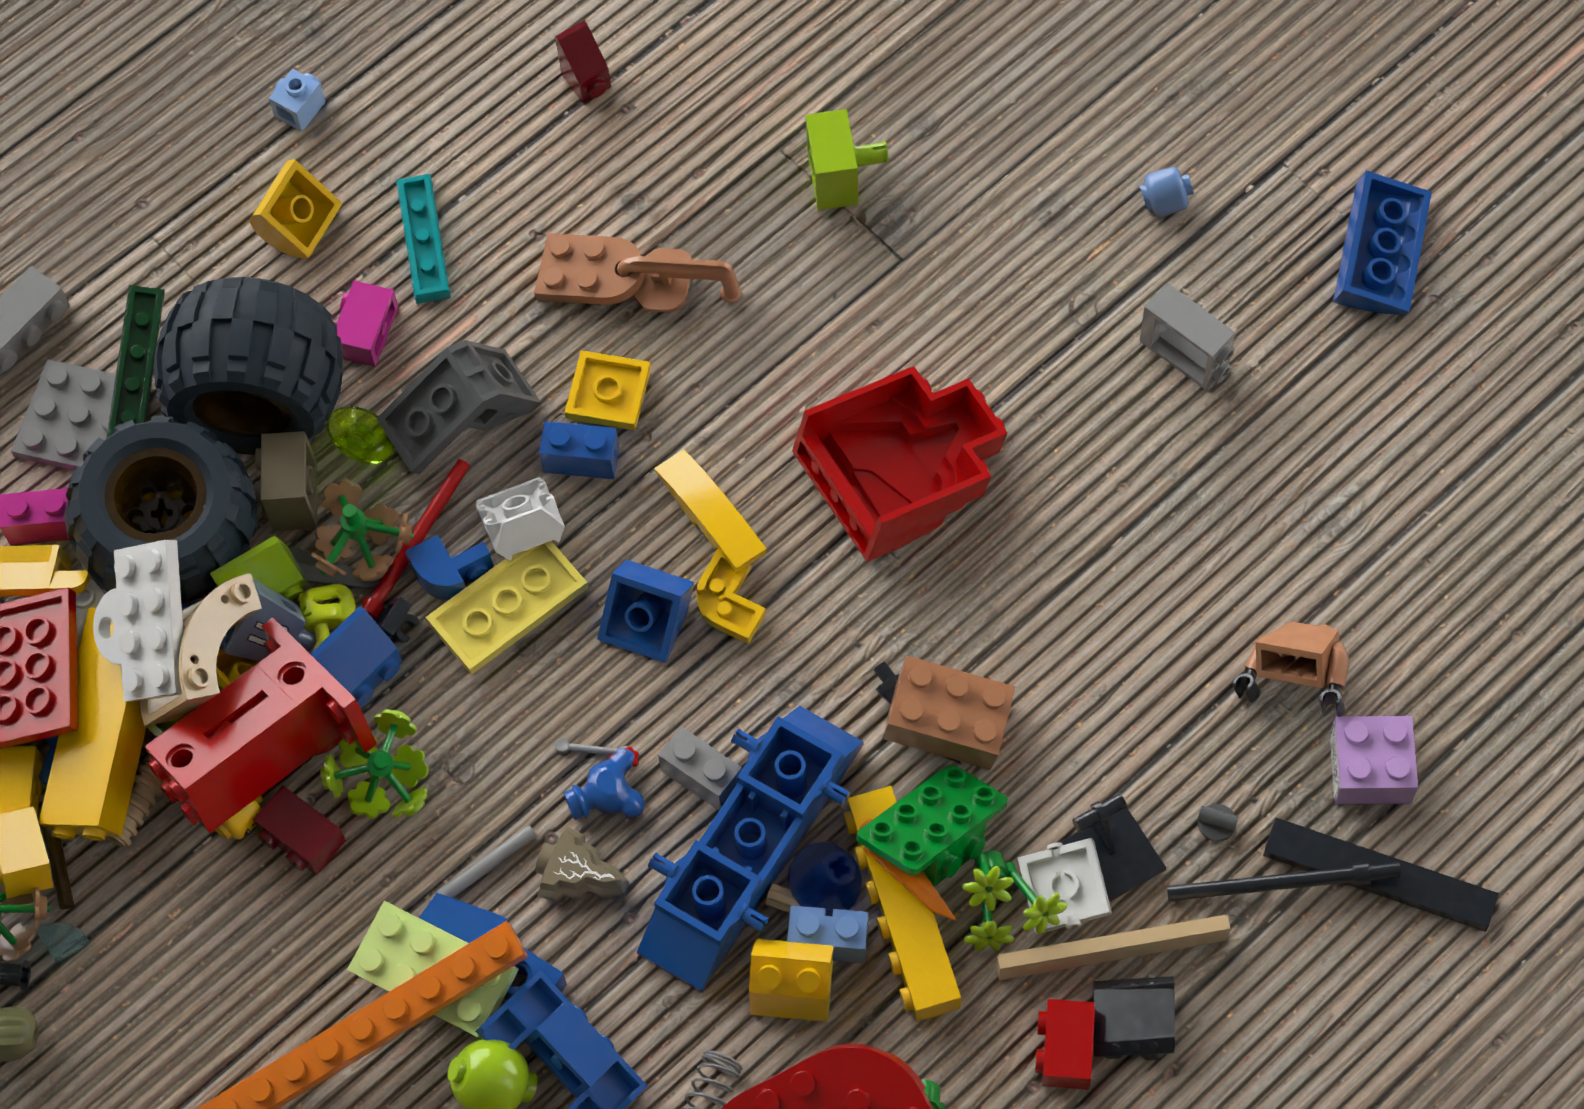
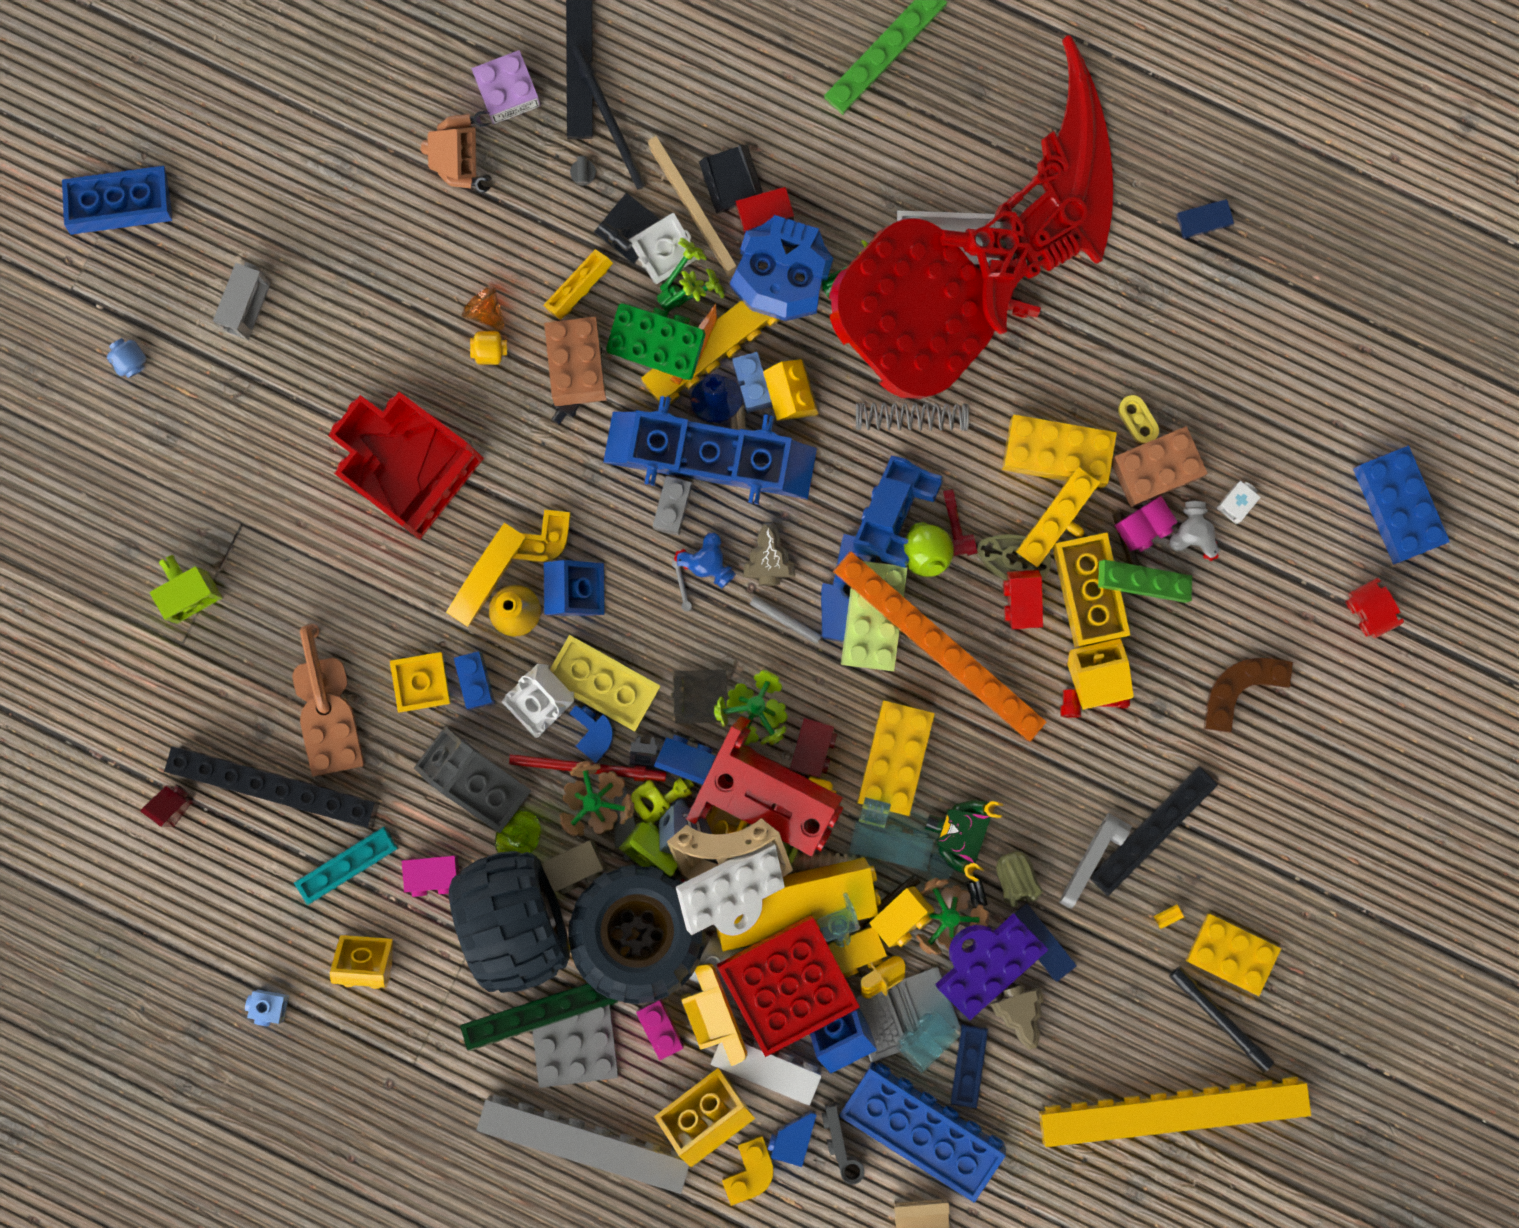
camera: 115 degrees left, 20 degrees up
(48, 760) = (840, 924): none -> clear light blue bracket
(88, 980) = (963, 833): none -> dark green torso
(124, 884) = (892, 845): none -> clear light blue brick
(170, 868) = (874, 812): none -> clear light blue tile
(233, 931) = (896, 756): none -> yellow brick
(438, 710) = (697, 694): none -> clear smoke plate
(553, 185) = (271, 787): none -> black brick
(650, 527) = (521, 617): none -> yellow cone
(943, 1004) = (776, 290): none -> blue brick
(1012, 612) = (487, 348): none -> yellow head
(1057, 757) = (578, 284): none -> yellow plate
(1067, 628) = (485, 309): none -> clear orange hat

